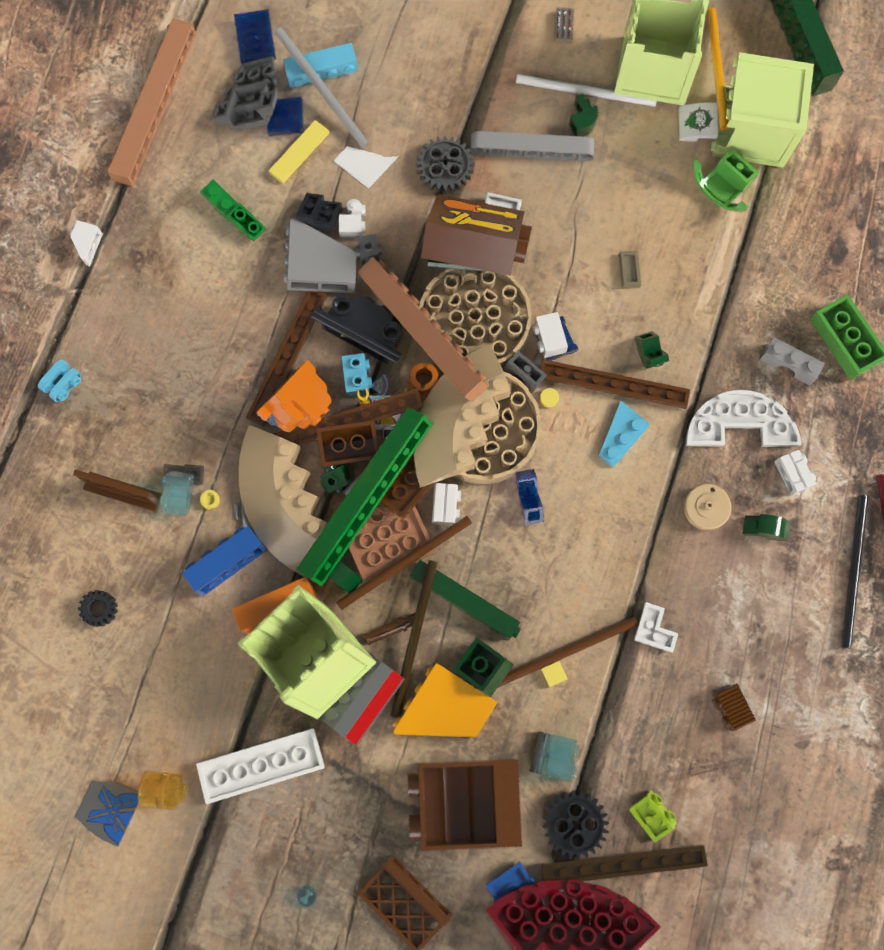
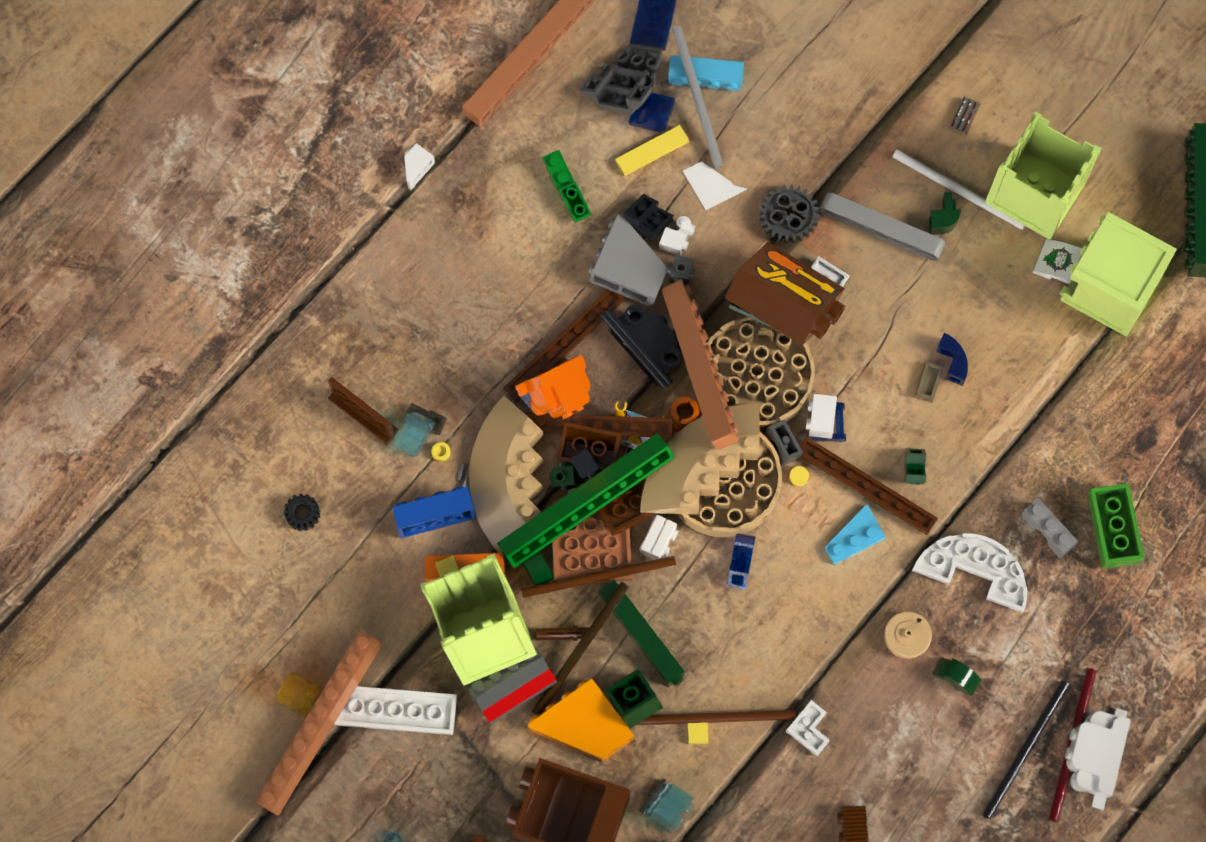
camera: 25 degrees right, 5 degrees down
(59, 380) = (354, 291): medium azure brick -> none
(108, 810) = (244, 696): sticker -> none
(189, 813) = (319, 722): none -> nougat brick
(258, 612) = (446, 566): none -> light yellow tile
(351, 461) = (585, 464): none -> black brick
(355, 374) = (622, 385): medium azure brick -> none
(381, 385) = (643, 405): sand blue tile -> none
(652, 247) = (959, 367): none -> clear blue brick
(717, 67) = (1106, 194): light orange piece -> none
(726, 181) = (1059, 330): bright green piece -> none
(795, 472) = (1007, 635): white brick -> none

